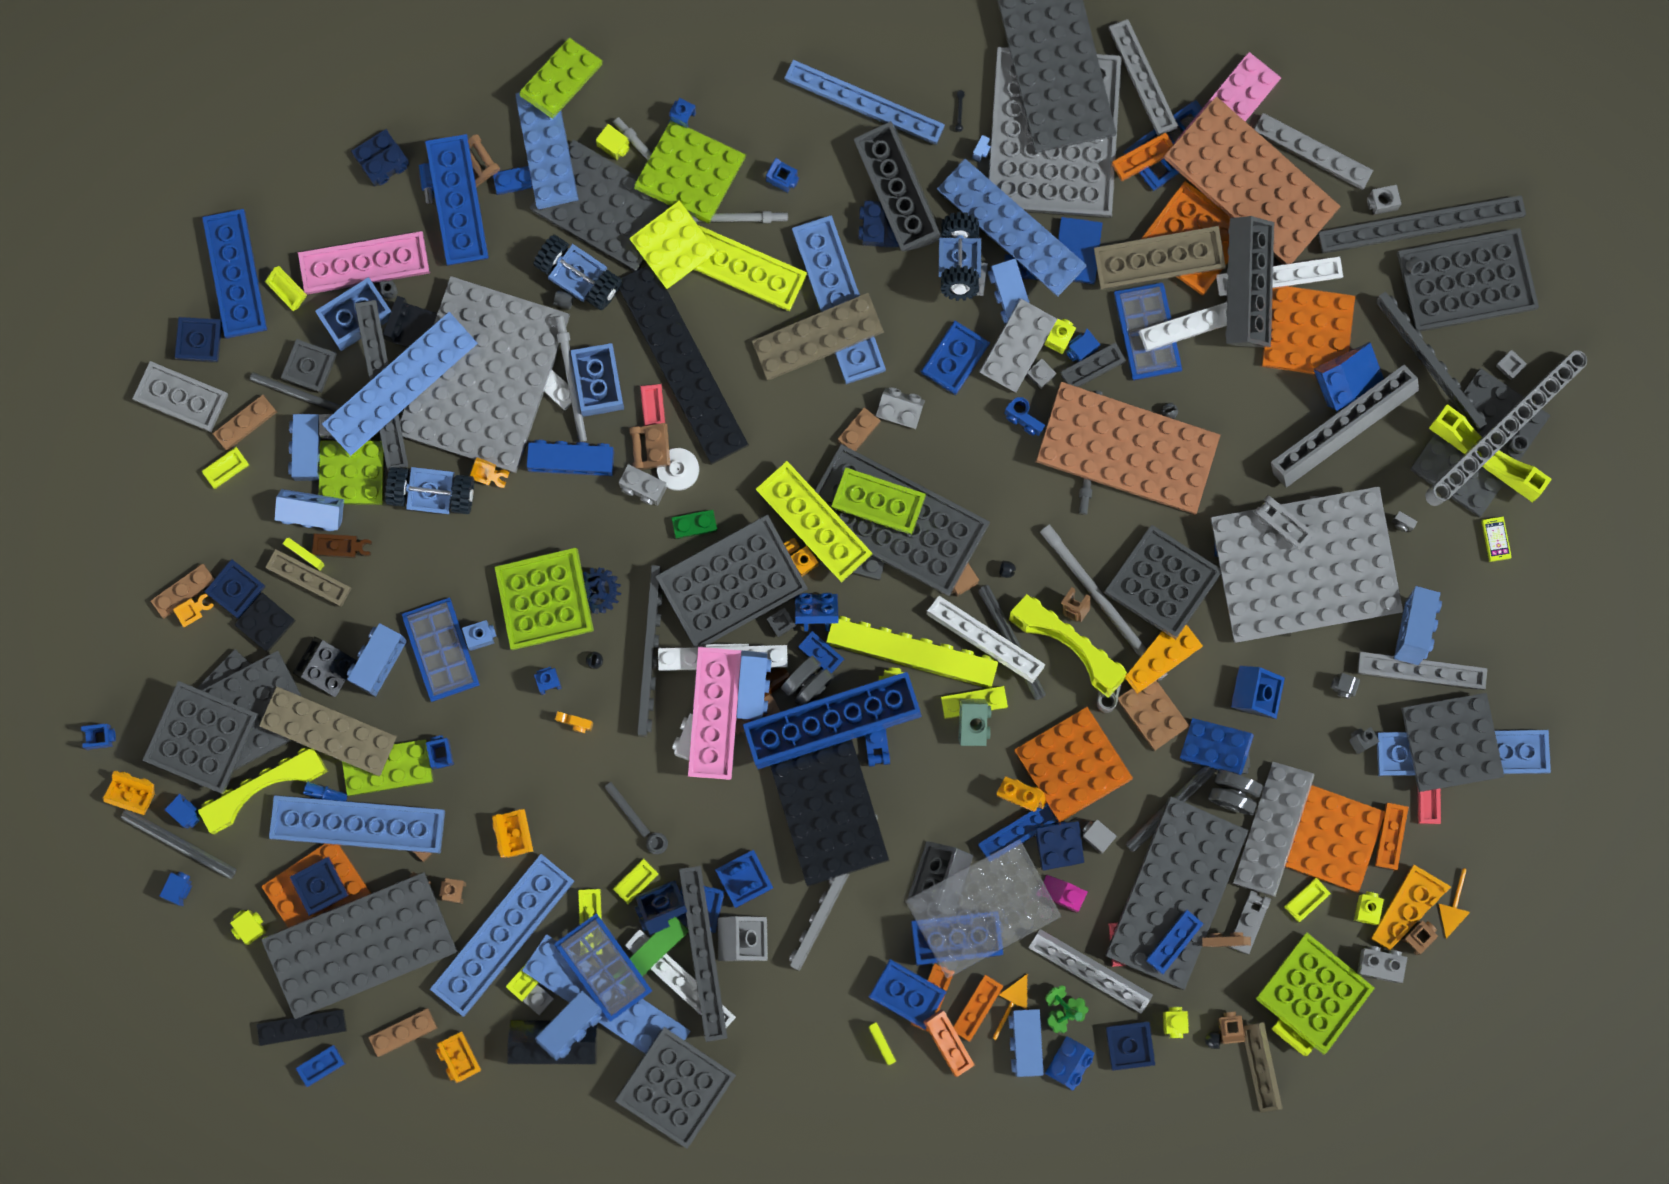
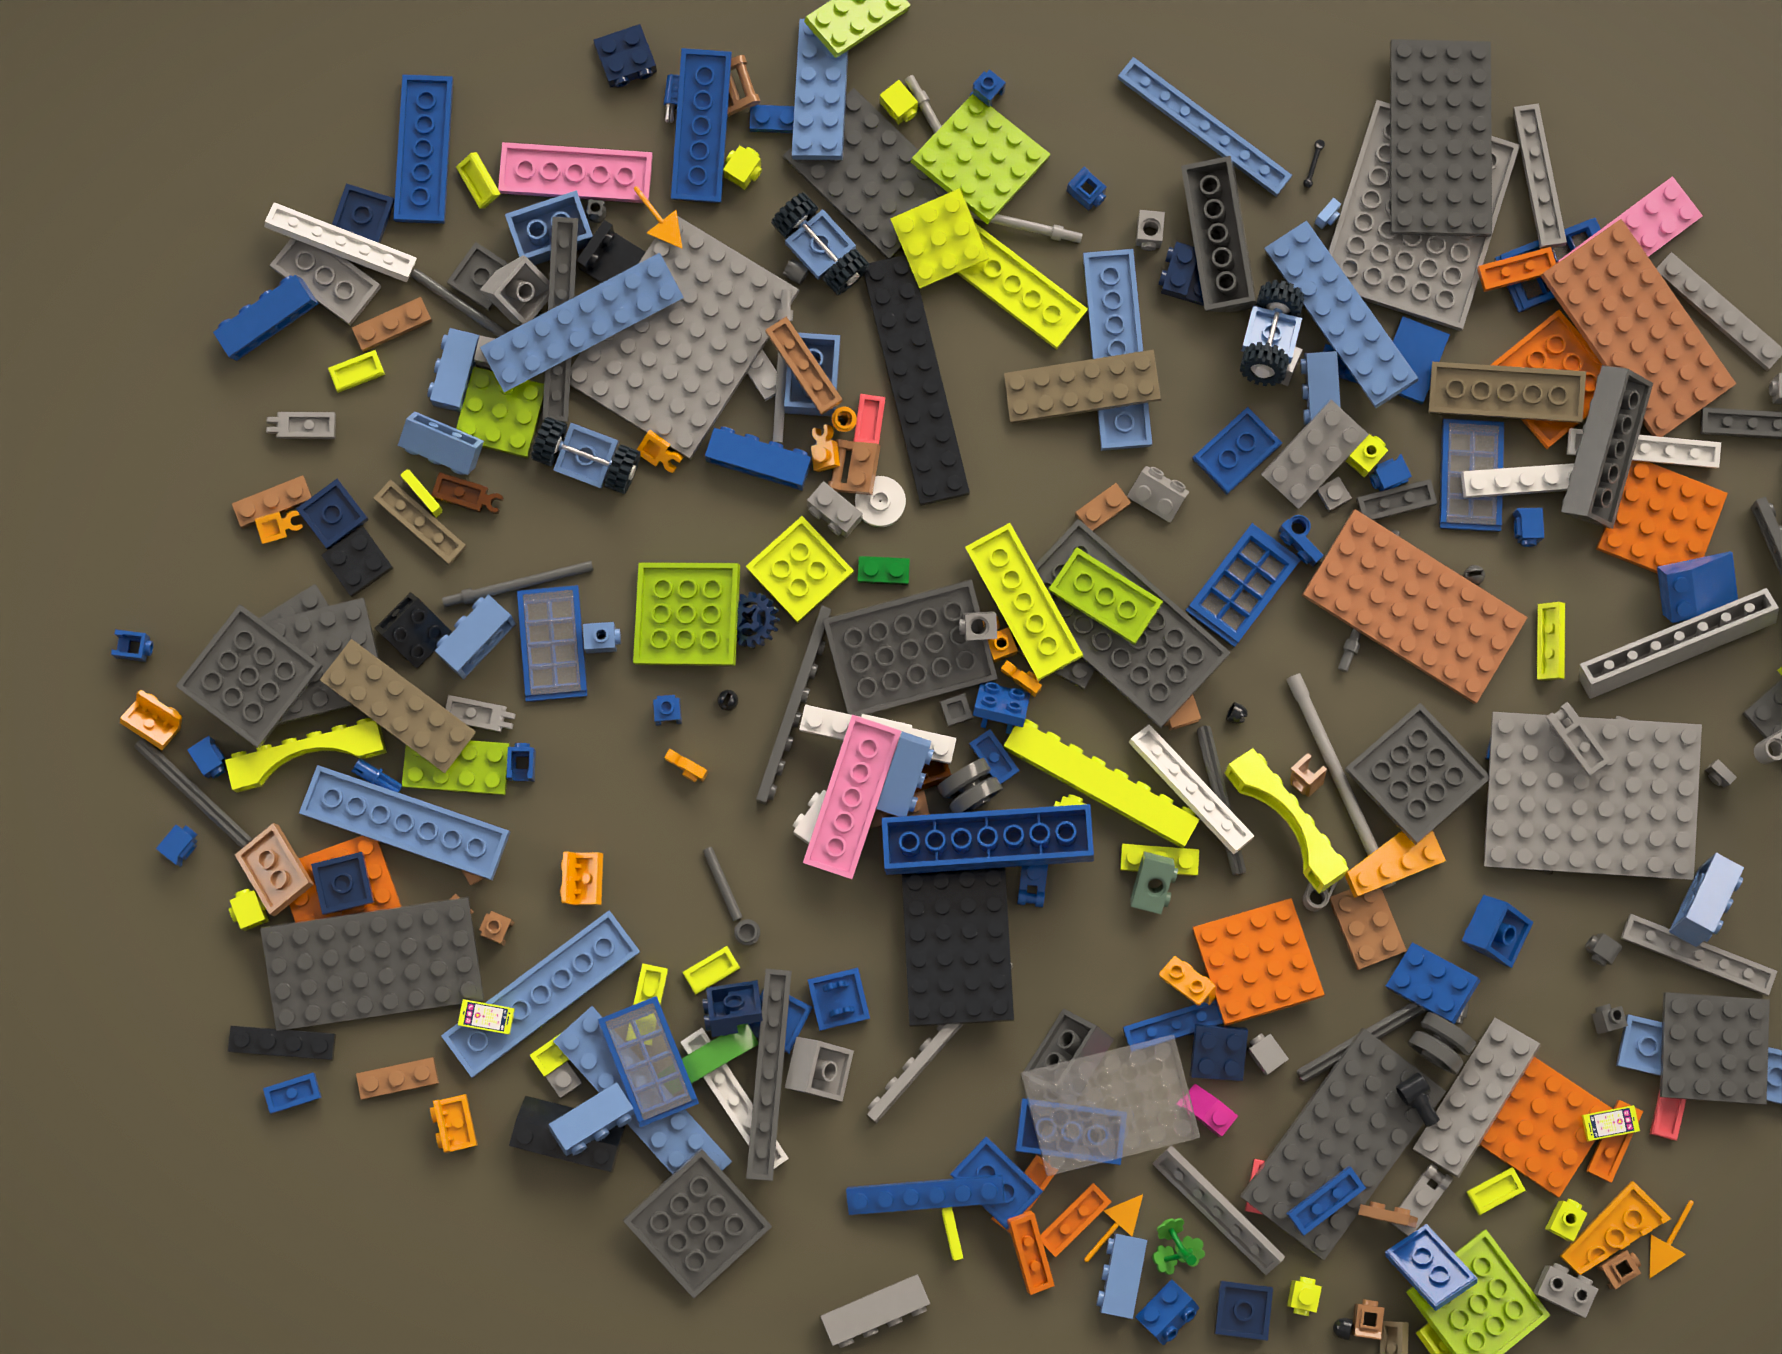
camera: 15 degrees right, 0 degrees up
(140, 442) = (265, 317): none -> blue brick
(185, 366) = (340, 242): none -> white plate
(193, 522) = (303, 425): none -> light grey hinge
(260, 889) = (274, 869): none -> medium nougat plate
(341, 370) = (518, 290): none -> light grey slope
(363, 628) = (469, 596): none -> dark grey bar
(396, 721) = (479, 713): none -> light grey hinge
(450, 290) = (667, 228): none -> light orange piece
(463, 964) = (486, 1017): none -> tile
(498, 225) = (742, 166): none -> neon yellow brick
(589, 374) = (803, 365): none -> medium nougat plate
(624, 440) = (825, 453): none -> light orange plate
(626, 540) = (799, 569): none -> neon yellow plate
(635, 406) = (849, 416): none -> light orange cone
(792, 550) = (989, 630): none -> light grey brick
(832, 585) = (1027, 681): none -> light orange plate
(835, 1121) = (875, 1310): none -> light grey brick
(841, 187) = (1154, 220): none -> light grey brick
(853, 1018) = (925, 1194): none -> blue plate
(986, 464) = (1243, 585): none -> blue piece
(1203, 361) = (1528, 526): none -> blue window
(1224, 838) = (1415, 1093): none -> black pin
(1243, 449) = (1551, 641): none -> neon yellow plate
(1270, 973) = (1431, 1267): none -> tile
(1384, 822) = (1610, 1123): none -> tile

